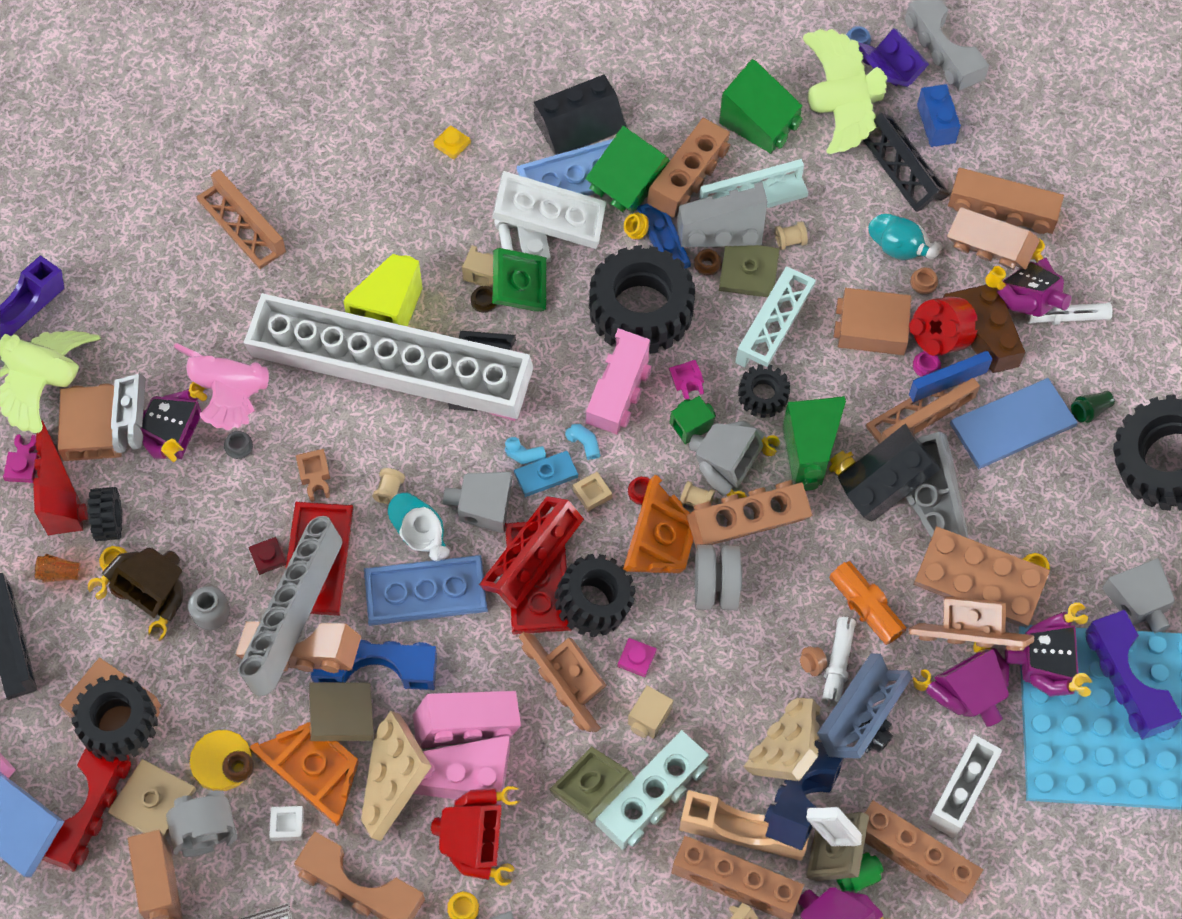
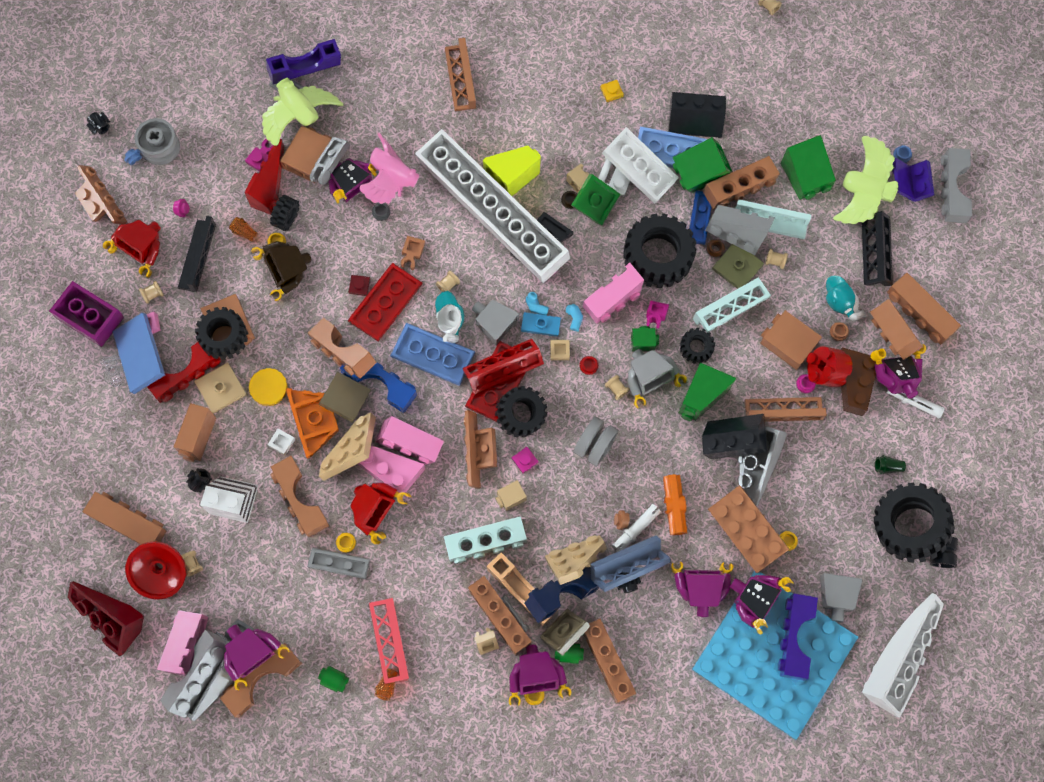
camera: 30 degrees right, 10 degrees up
(200, 823) = (235, 416): light grey brick -> none
(209, 608) = (309, 298): light grey head -> none
(233, 759) = (270, 391): reddish brown plate -> none
(290, 606) = (349, 323): light grey beam -> none
(592, 784) = (454, 516): olive plate -> none
(636, 225) = (687, 202): yellow plate -> none
(661, 534) = (582, 397): orange wing -> none
(793, 510) = (666, 426): nougat brick -> none
(834, 826) = (562, 621): white tile -> none
(841, 462) = (714, 414): yellow plate -> none
(938, 115) = (918, 231): blue brick -> none
(950, 376) = (813, 399): blue tile -> none
(964, 786) = (658, 641): white brick -> none
(973, 621) = (724, 553): bracket -> none
(1013, 423) = (834, 448): medium blue tile -> none

